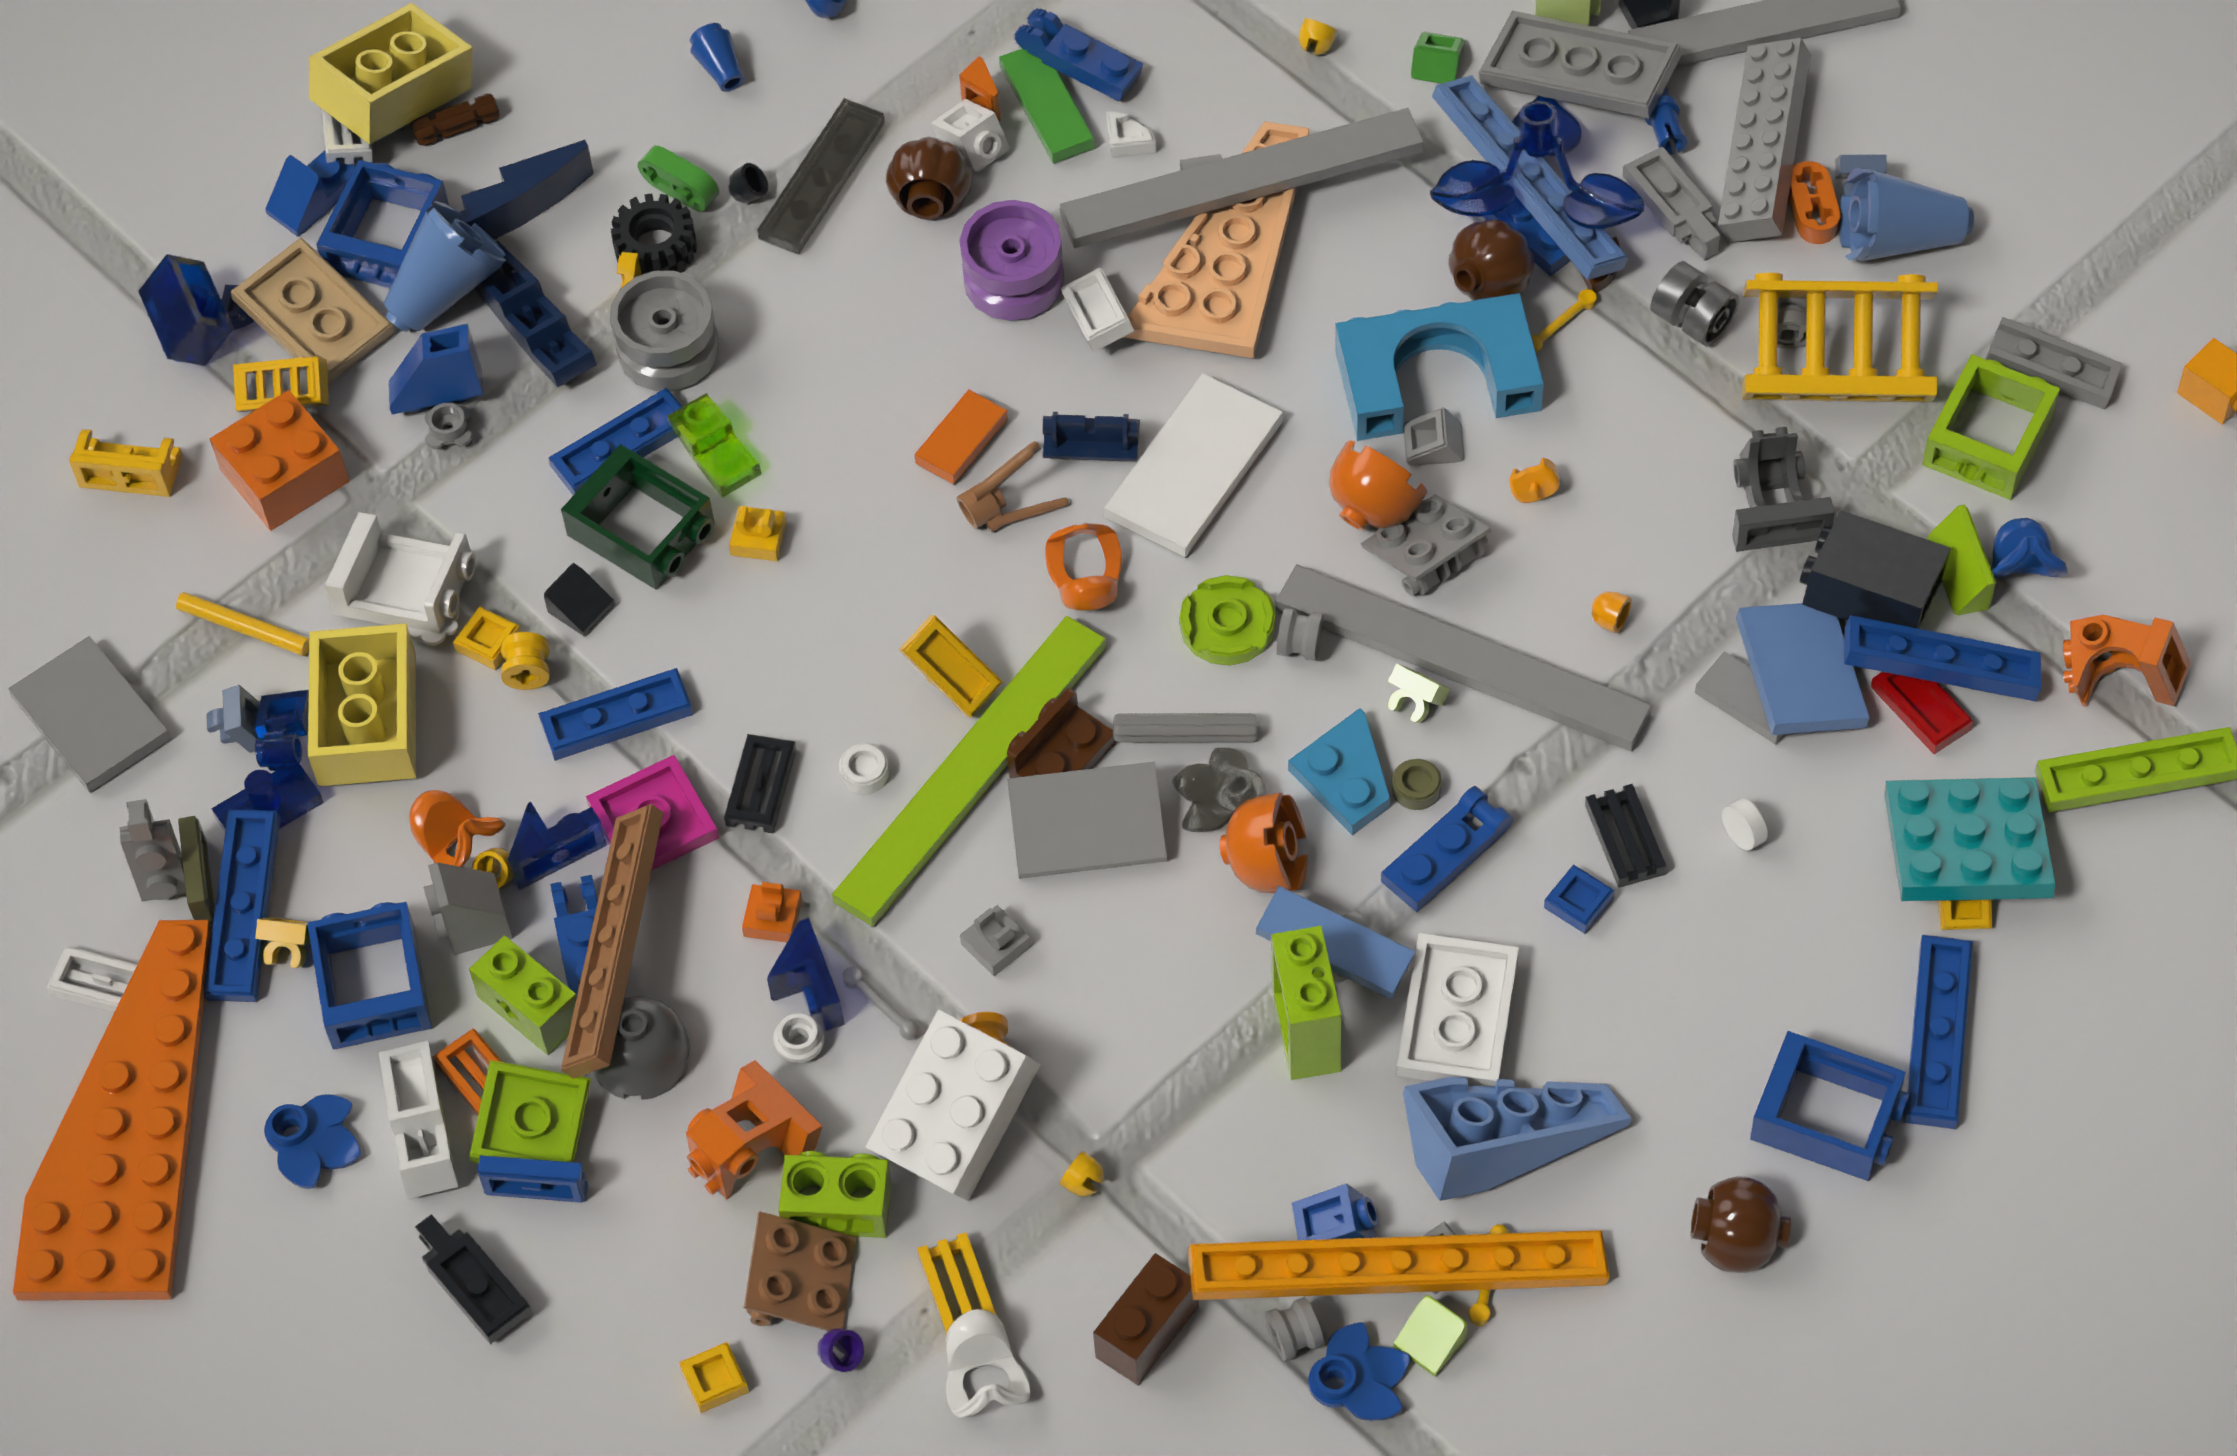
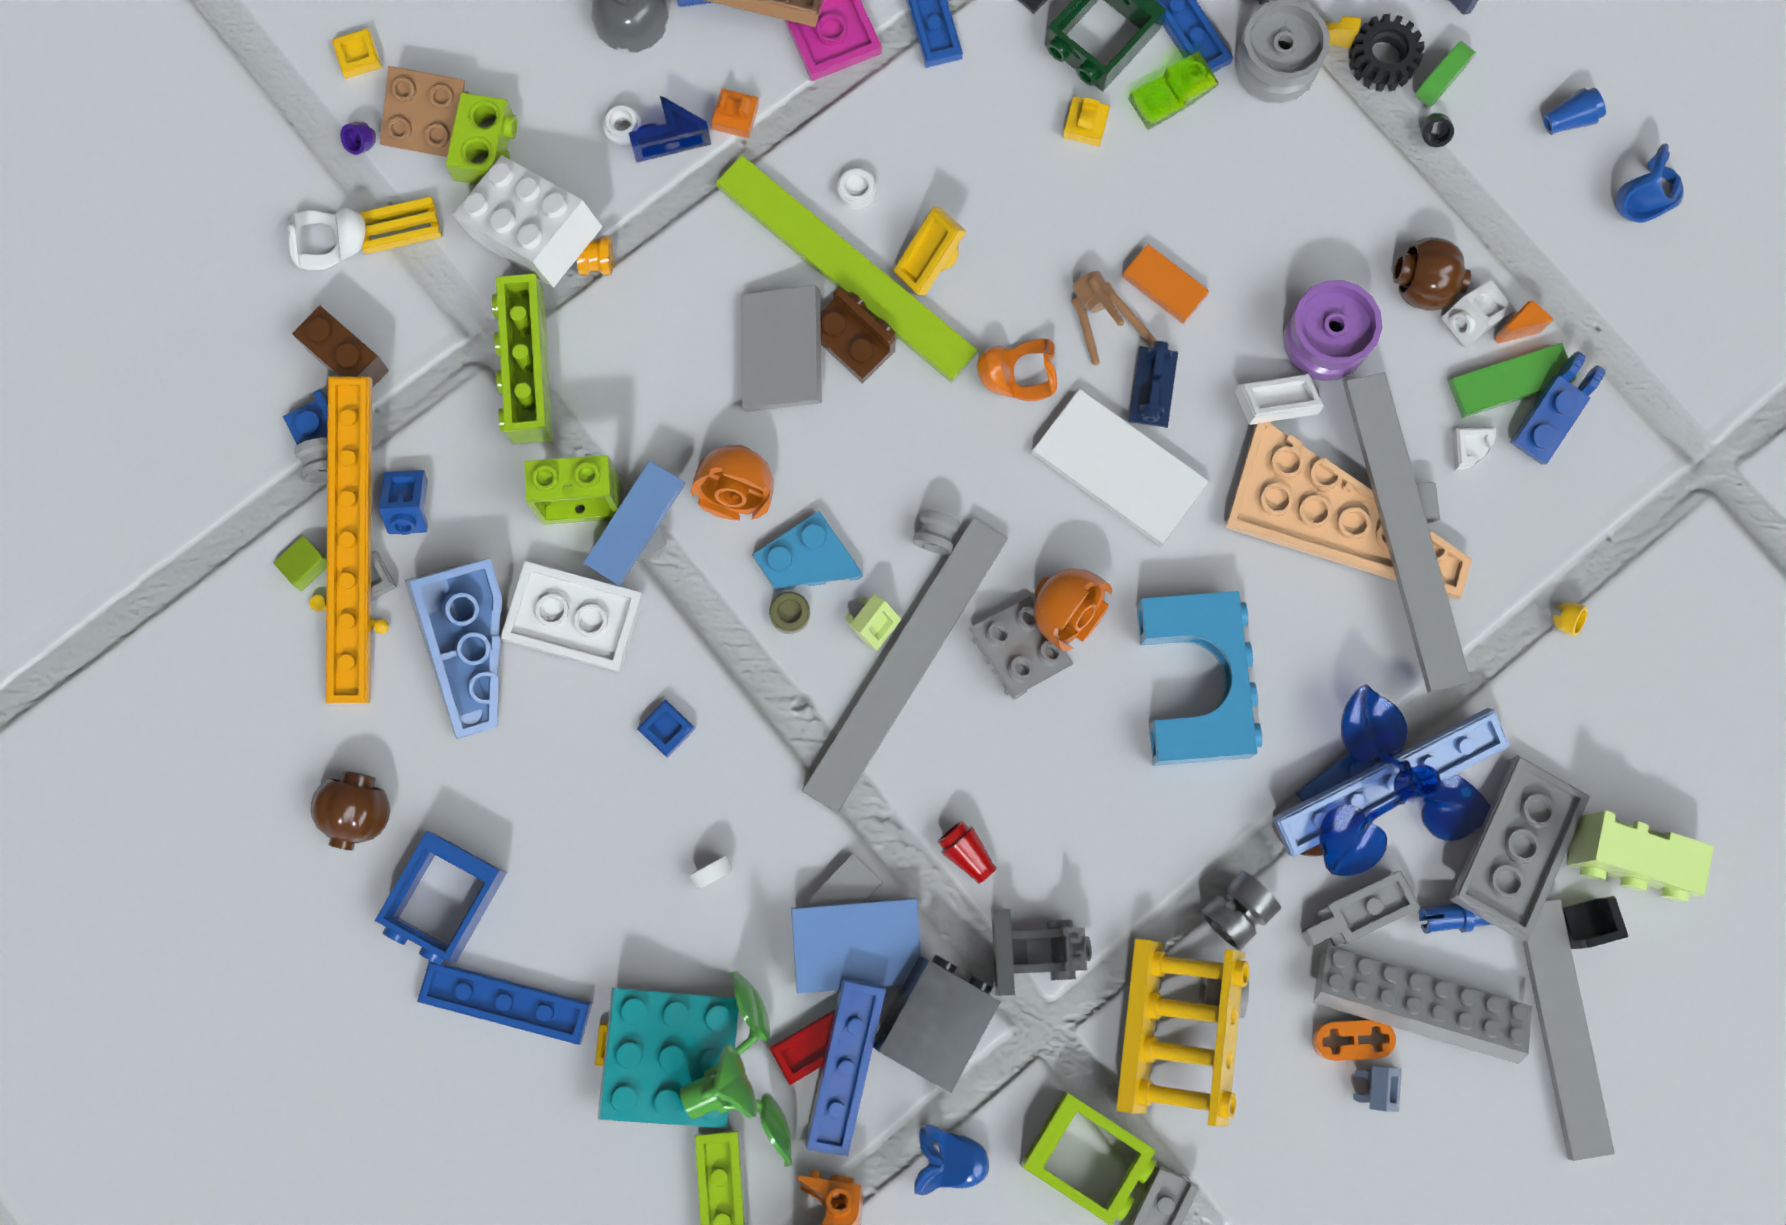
camera: 90 degrees right, 20 degrees up
(726, 1152) = (550, 93): orange tile -> none
(752, 817) = (848, 124): black tile -> none
(821, 176) = (1445, 191): clear smoke tile -> none
(854, 979) = (673, 170): light grey hinge -> none
(995, 940) = (689, 274): light grey tile -> none
(1080, 1173) = (473, 321): yellow hinge -> none
(1136, 1095) = (523, 359): none -> lime brick
(1185, 727) = (859, 433): light grey axle -> none
(1214, 789) = (803, 450): clear smoke plate -> none
(1227, 620) = (964, 479): lime tile -> none
(1240, 1344) = (309, 420): none -> blue bracket
(1366, 1374) = (279, 512): blue plate -> none
(1433, 439) = (1127, 669): light grey slope -> none
(1437, 57) = (1543, 723): bright green slope -> none
(1445, 849) = (724, 627): blue plate -> none
(1490, 260) = (1295, 734): reddish brown plant -> none
(1535, 482) = (1073, 746): light orange piece -> none
(1586, 300) = (1264, 820): yellow hinge -> none
(1611, 610) = (934, 792): light orange hinge -> none
(1613, 802) = (684, 780): black tile -> none
(1671, 573) = (967, 852): none -> red cone
(1899, 216) = (1319, 1114): medium blue cone -> none
(1967, 573) = (939, 1106): lime slope -> none
(2001, 766) = (729, 1080): none -> bright green plant

